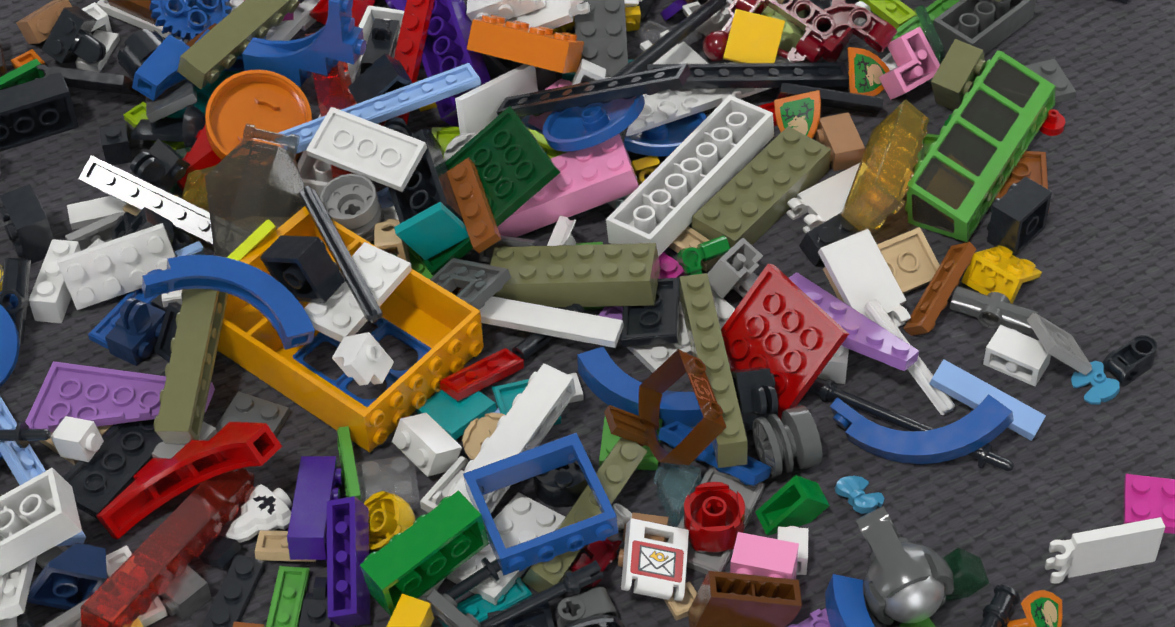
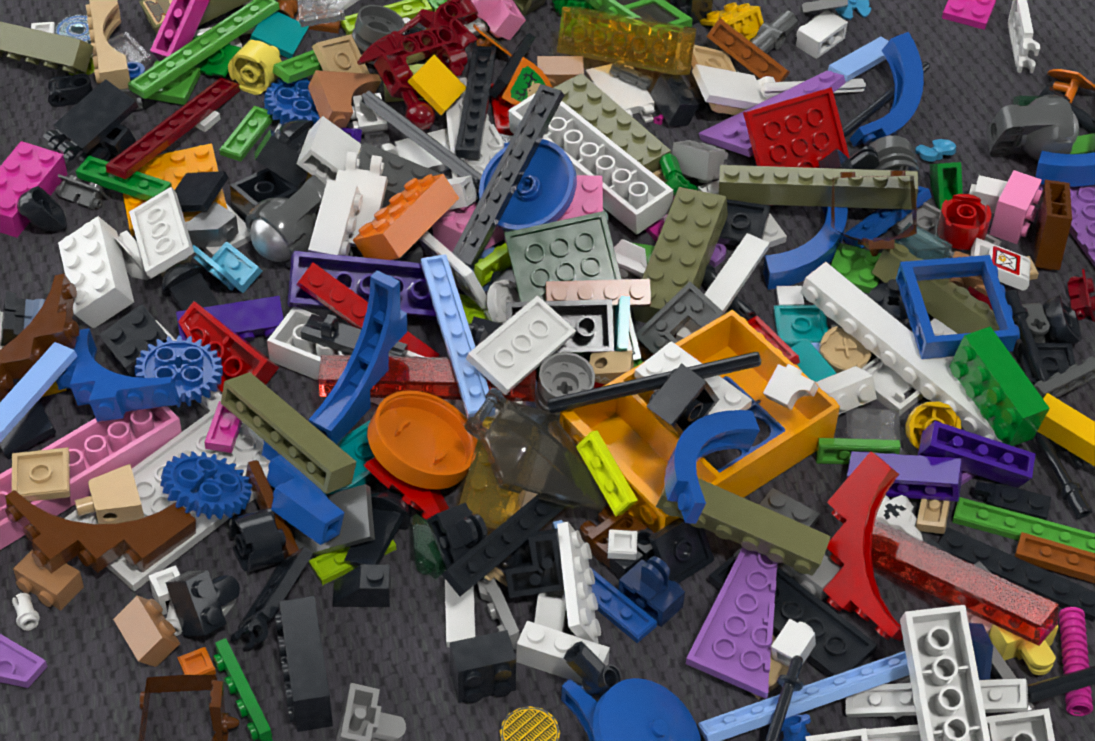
camera: 80 degrees left, 0 degrees up
(380, 78) = (424, 329): black brick -> none

